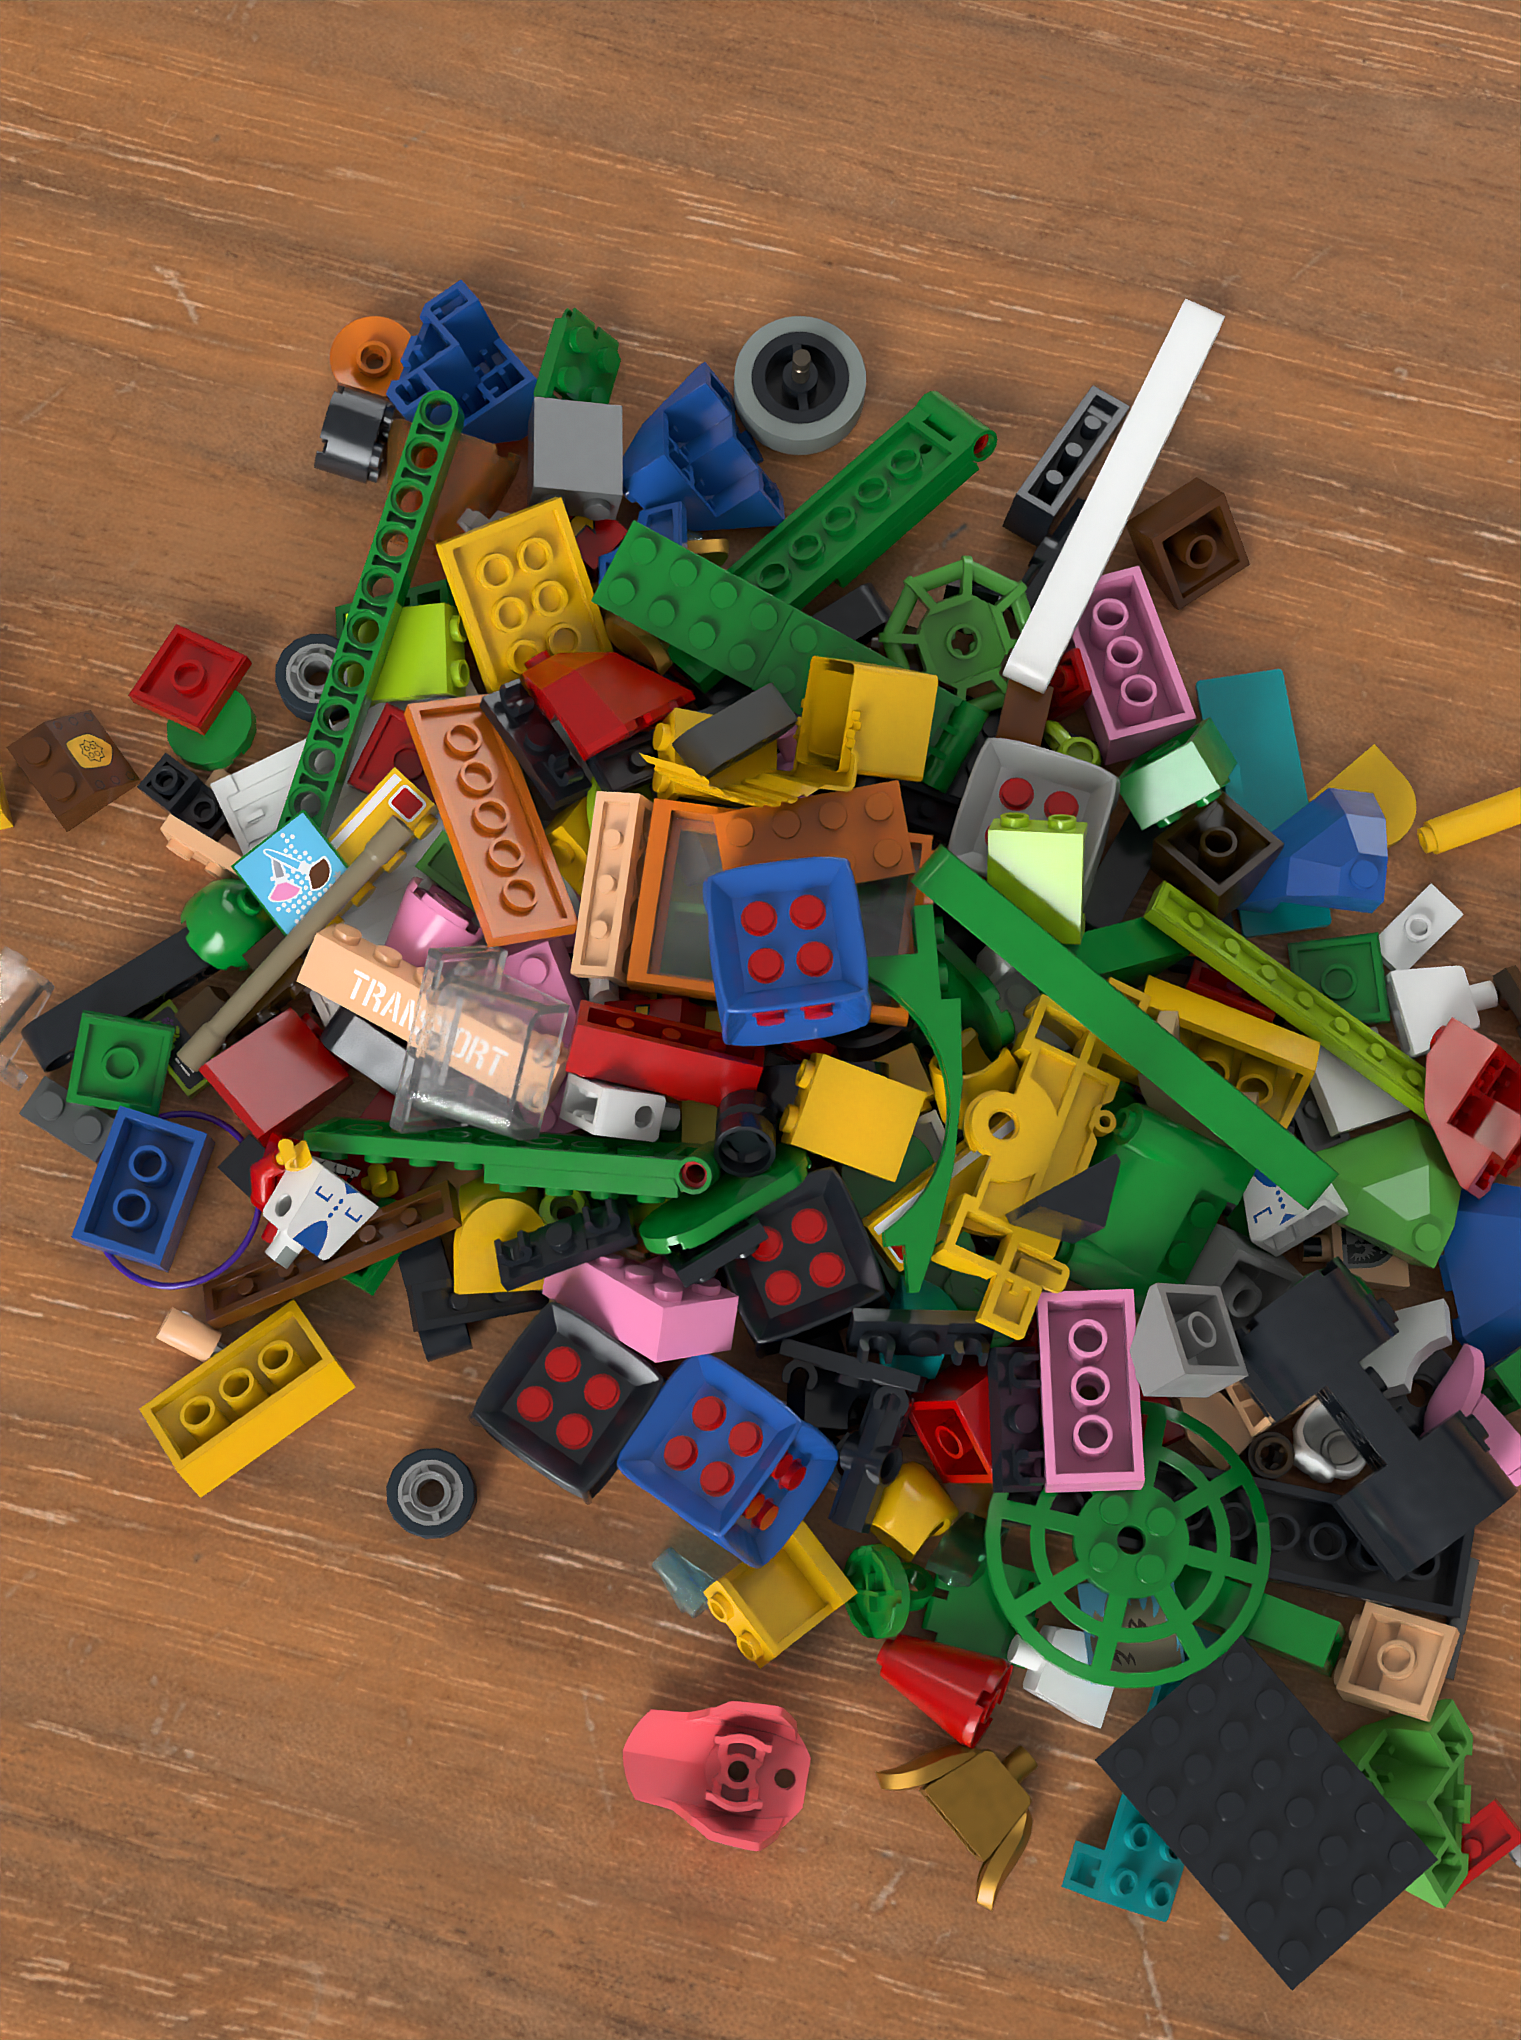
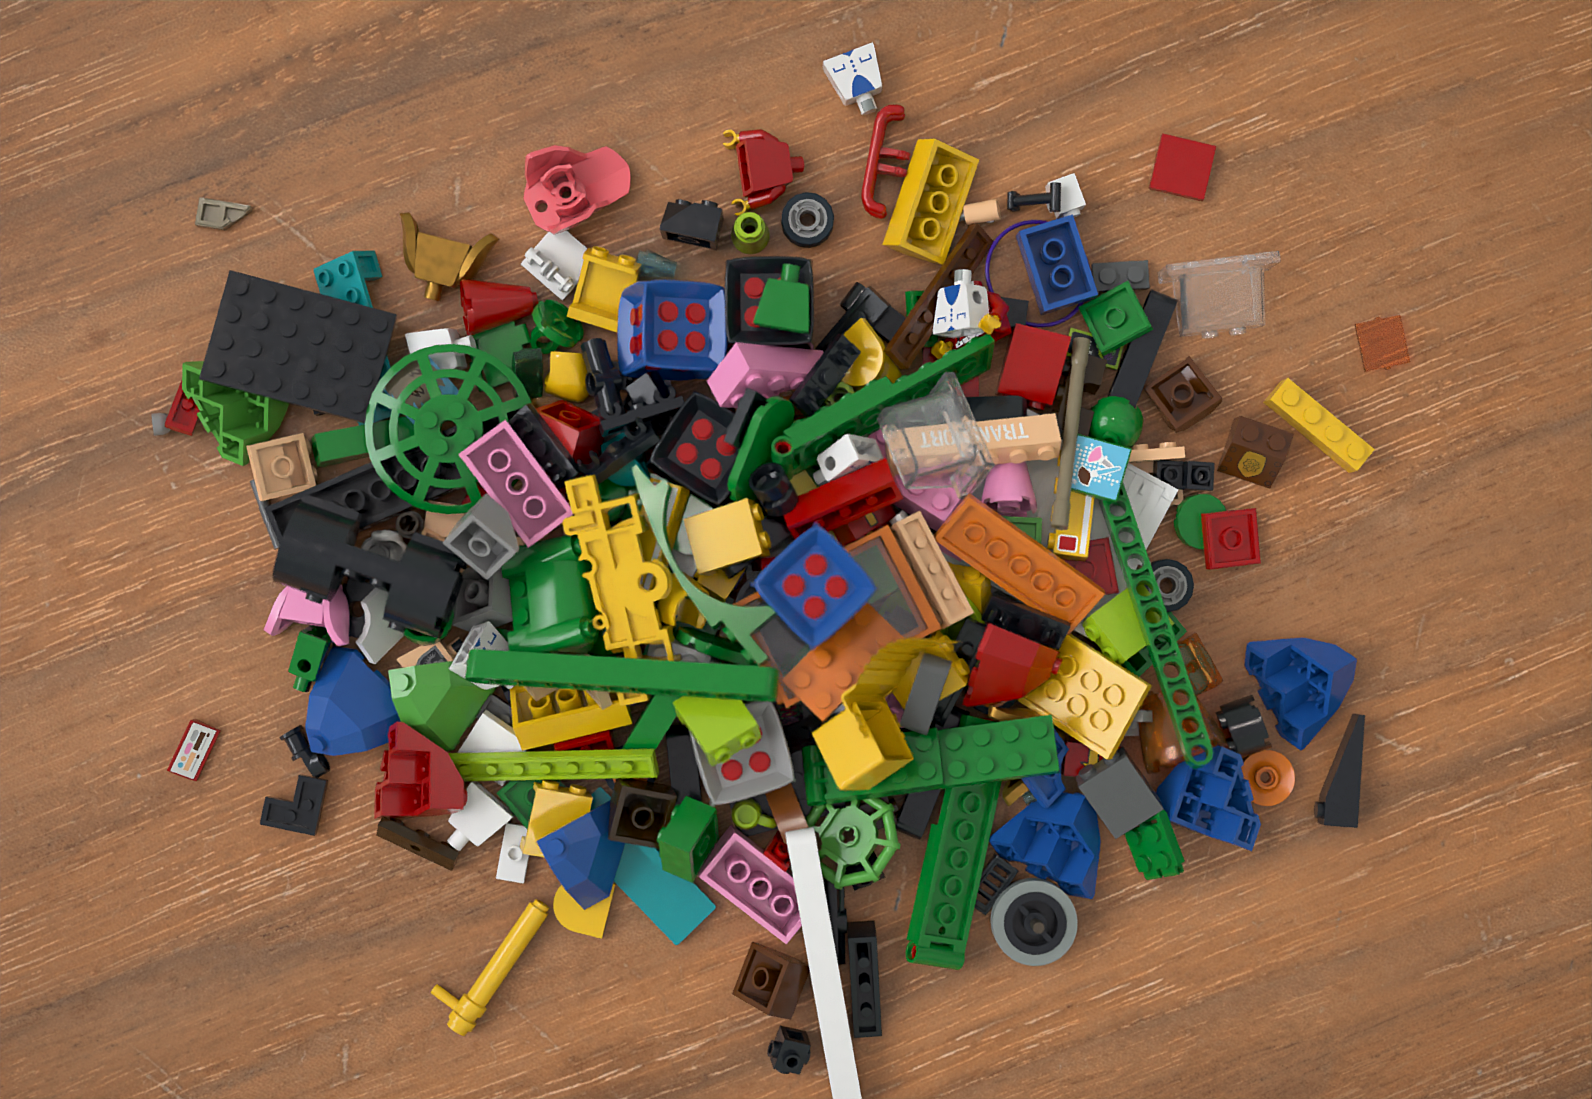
camera: 145 degrees right, 10 degrees up
(63, 1275) = (1071, 196): none -> white brick
(79, 1279) = (1015, 200): none -> black piece
(109, 902) = (1183, 395): none -> reddish brown slope
(219, 1646) = (855, 77): none -> white torso
(241, 441) = (1300, 683): none -> blue brick
(271, 1520) = (876, 151): none -> red piece
(288, 283) = (1341, 790): none -> black slope
(349, 553) = (1198, 664): none -> clear orange slope
(438, 1609) = (763, 167): none -> red torso
(539, 1543) = (753, 242): none -> lime plant
(549, 1371) = (784, 303): none -> green torso
(592, 1599) = (692, 223): none -> black slope
(800, 460) = (1005, 881): none -> black slope
(817, 1682) = (556, 262): none -> white hinge
(1073, 1207) = (584, 563): black slope -> none
(1224, 441) = (789, 1050): none -> black brick
(1328, 940) = (552, 809): none -> yellow panel

